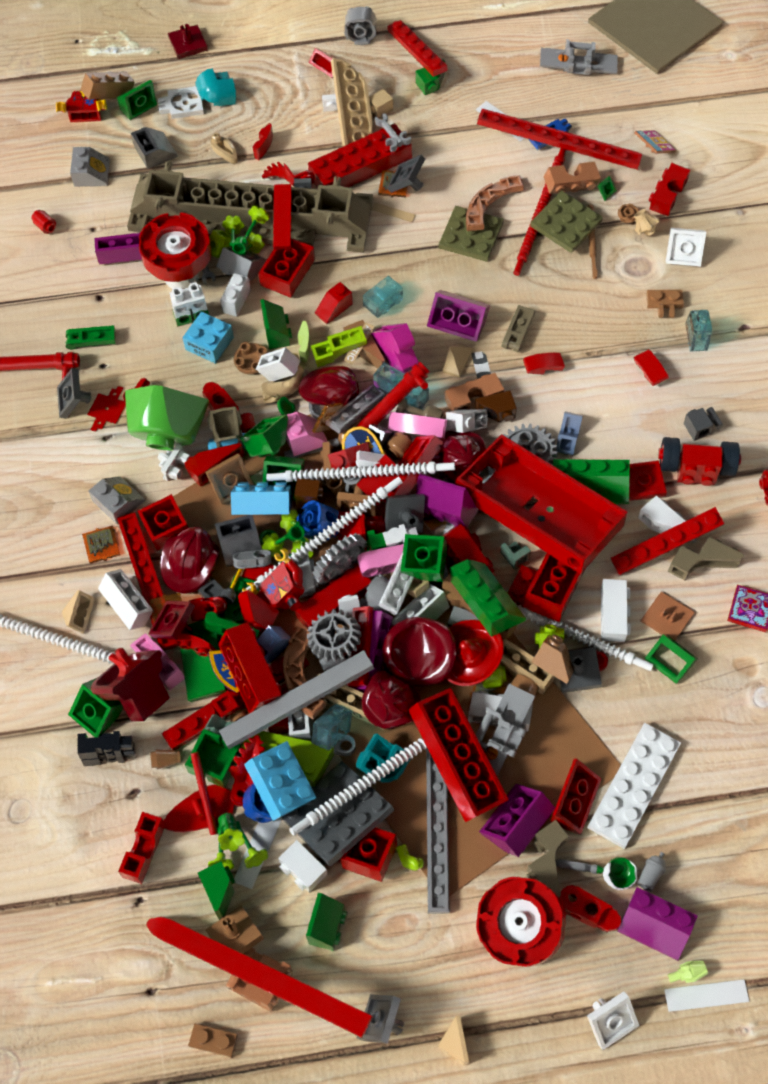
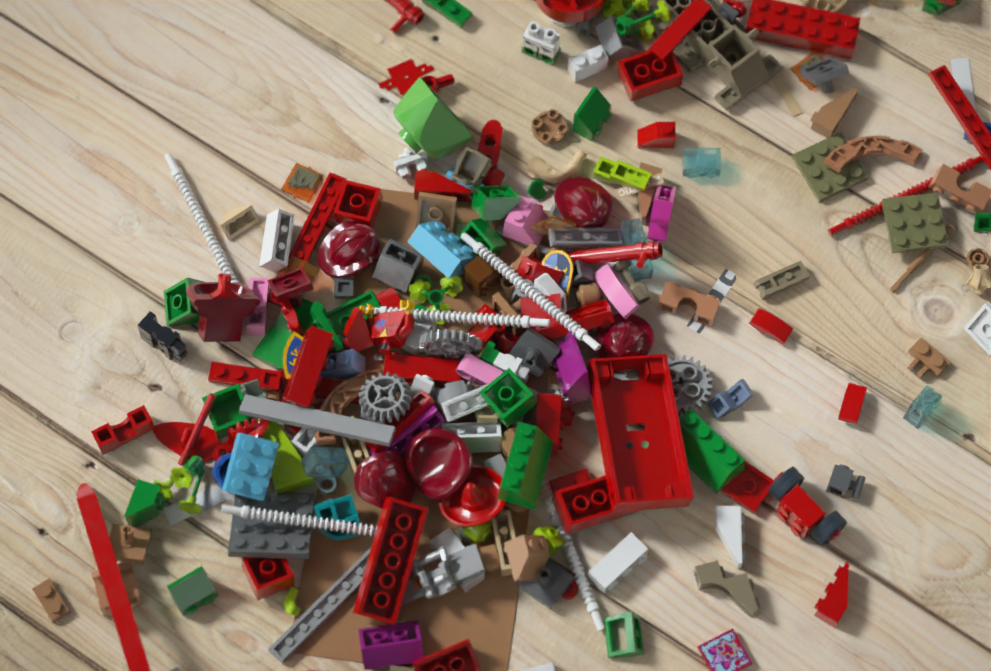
camera: 40 degrees right, 5 degrees up
(70, 394) = (386, 43): dark grey tile -> none
(115, 497) = (345, 154): light grey slope -> none
(164, 758) = (196, 380): medium nougat cone -> none
(205, 605) = (327, 296): red piece -> none
(208, 337) = (532, 82): medium azure brick -> none
(229, 593) = (351, 301): dark grey hinge -> none
(252, 559) = (392, 288): light grey piece -> none
(278, 364) = (559, 151): white brick -> none
(302, 867) = (215, 540): white brick -> none
(304, 341) = (605, 145): yellowish green slope -> none
(316, 518) = (466, 299): blue brick -> none
(395, 140) = (843, 35): light grey bar -> none
(439, 203) = (831, 114): none -> medium nougat slope
(457, 359) = (708, 263): tan slope -> none
(458, 315) = (744, 228): magenta slope -> none
(466, 420) = (660, 320): white slope -> none
(499, 406) = (697, 329): reddish brown slope -> none
(515, 554) = (590, 456): sand green panel -> none
(667, 541) = (711, 548): red plate -> none
(667, 616) = (655, 604): nougat piece -> none

